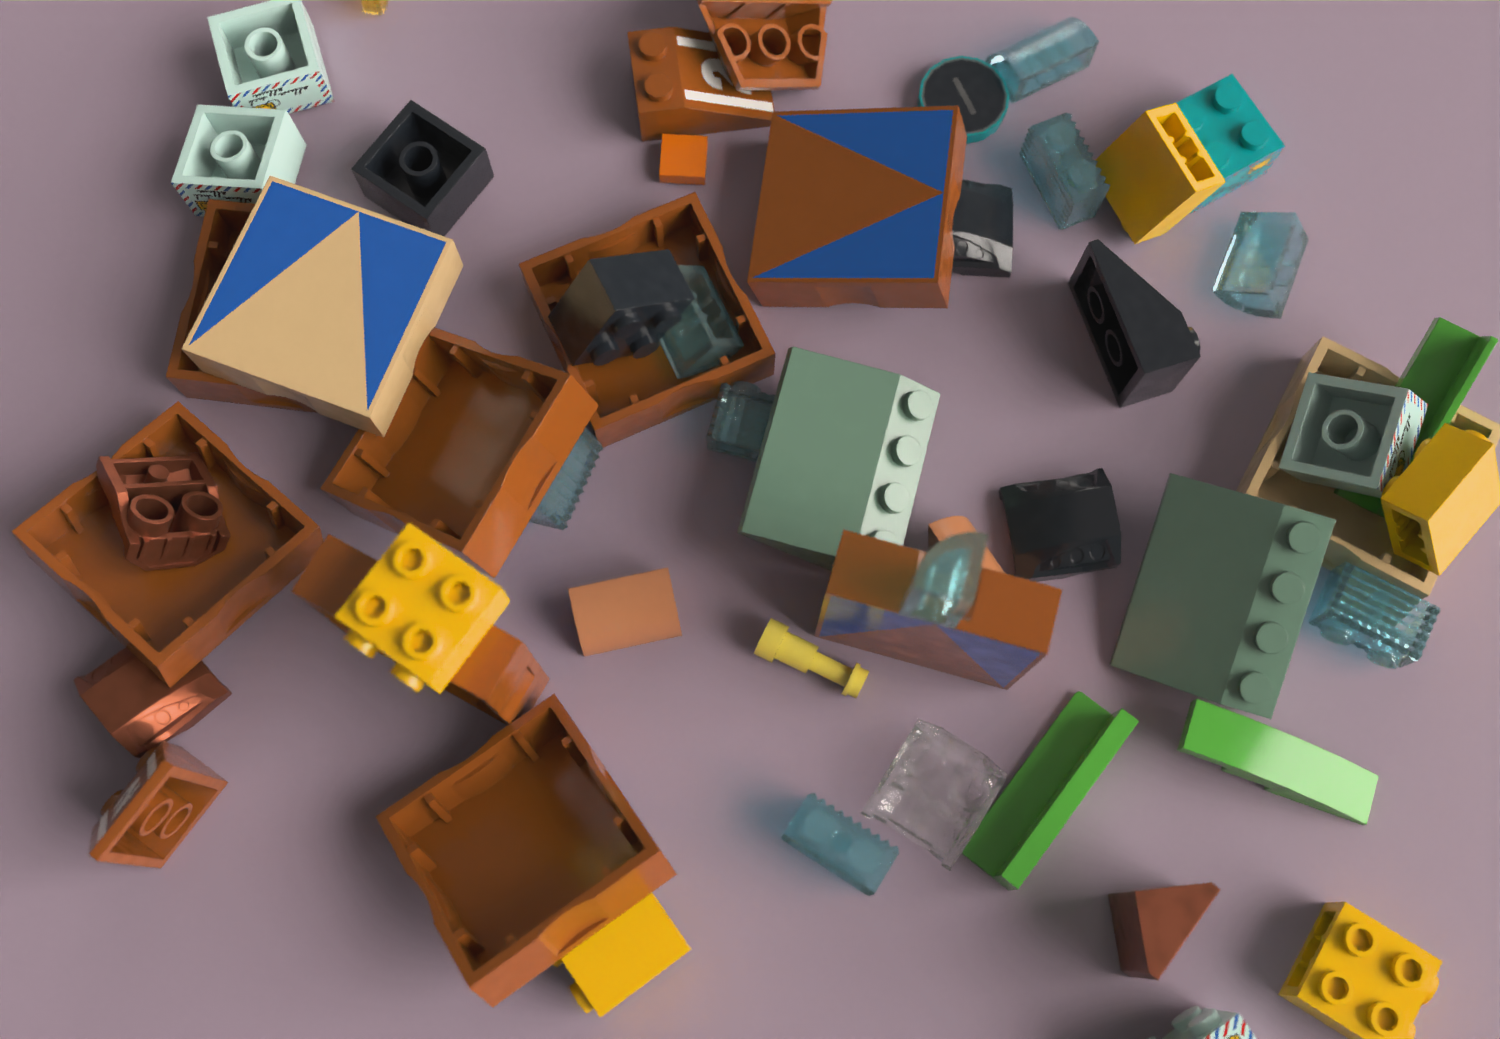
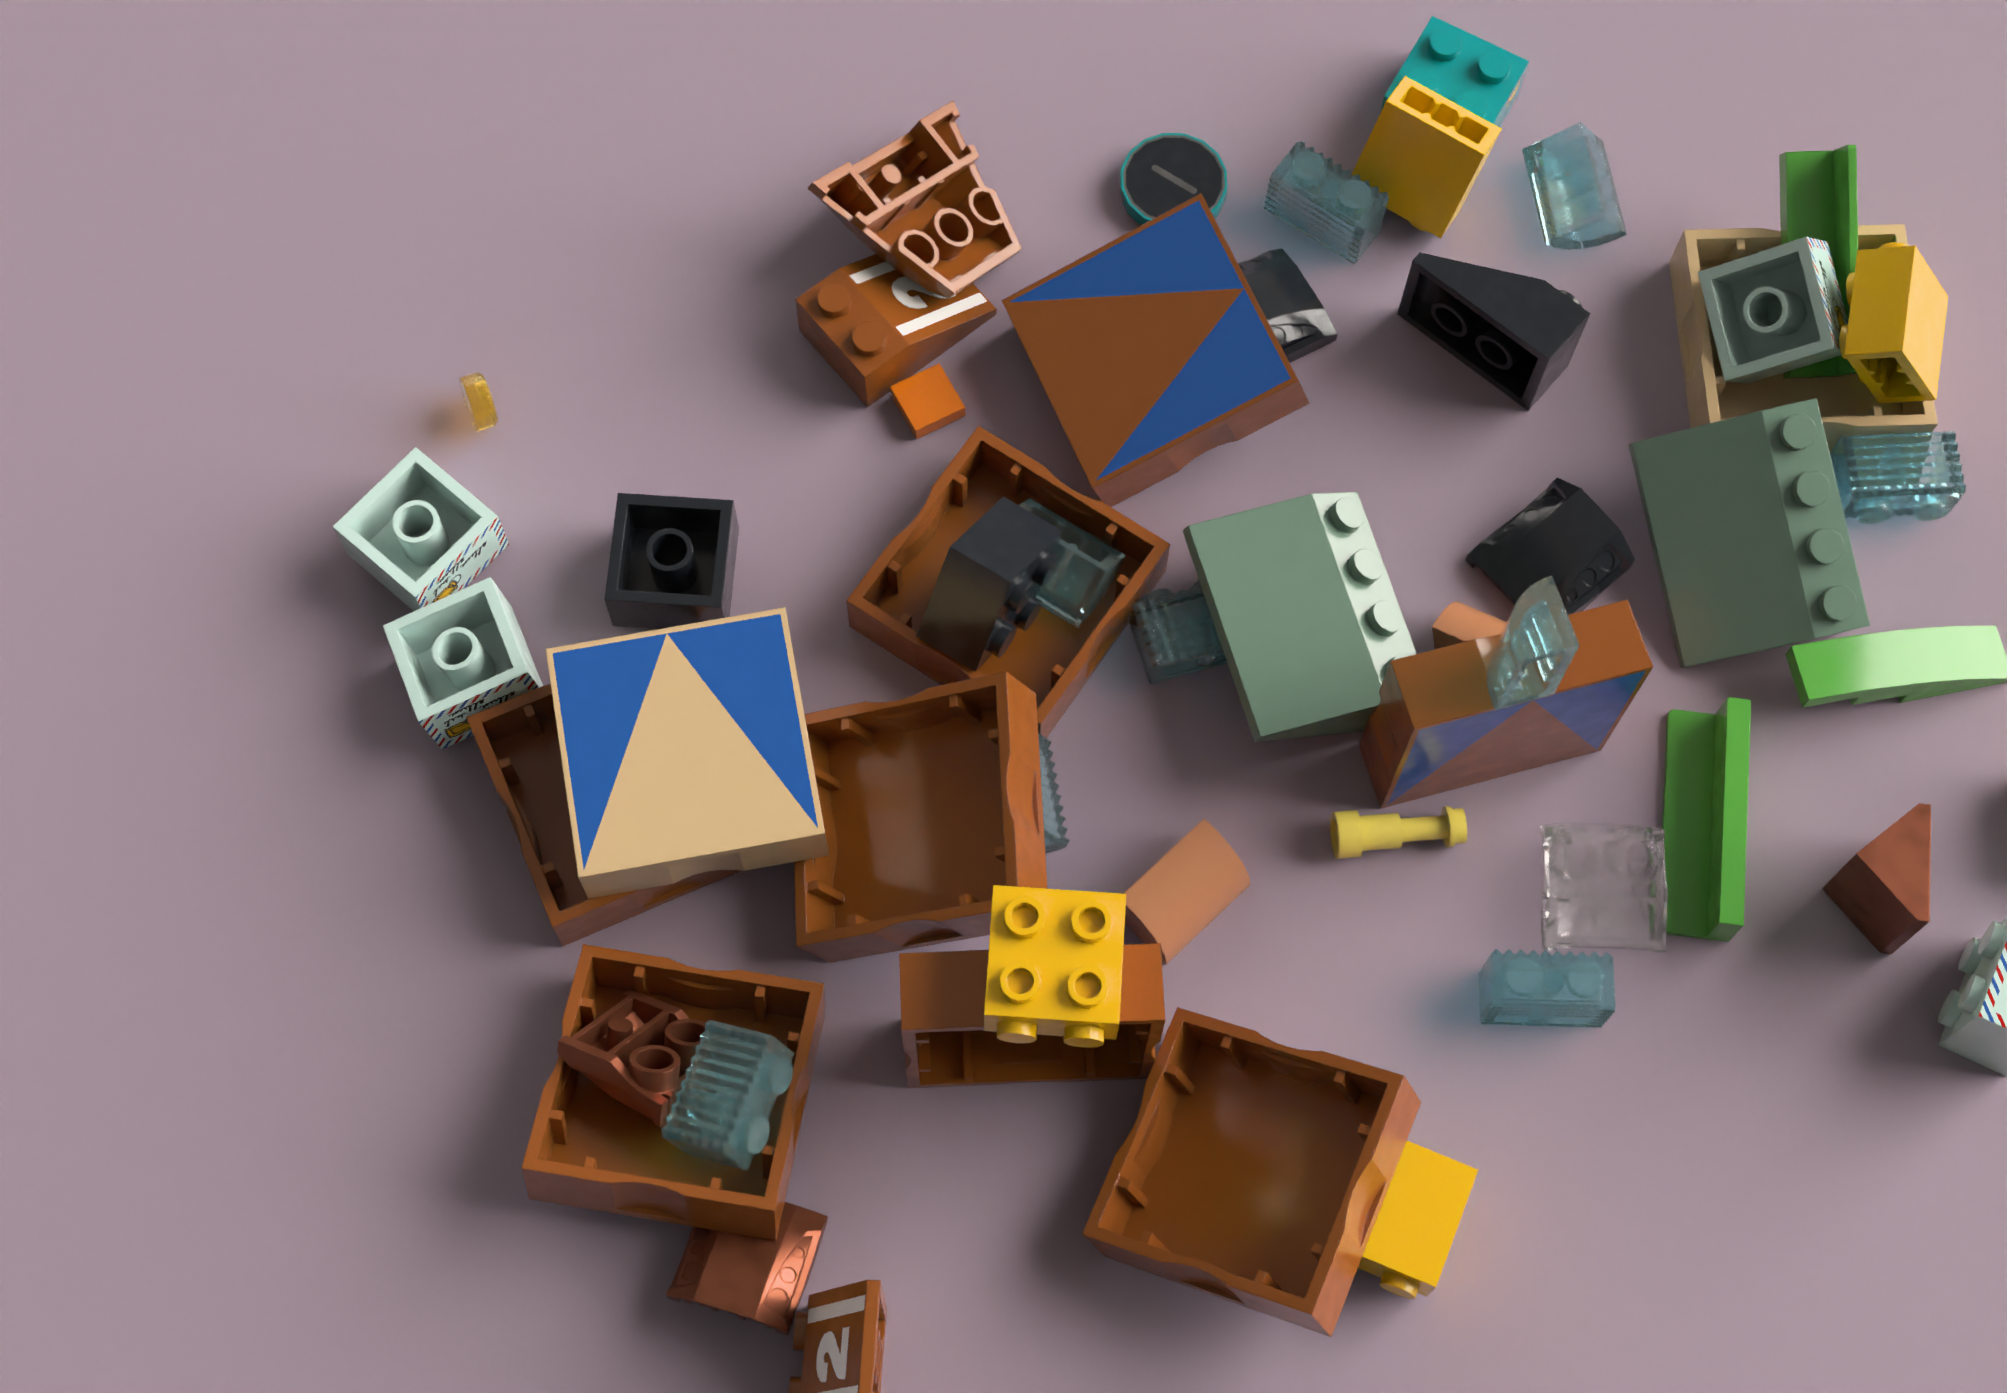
camera: 30 degrees left, 5 degrees down
(190, 565) = (729, 1095): none -> clear light blue brick
(1045, 57) = (1228, 94): clear light blue brick -> none

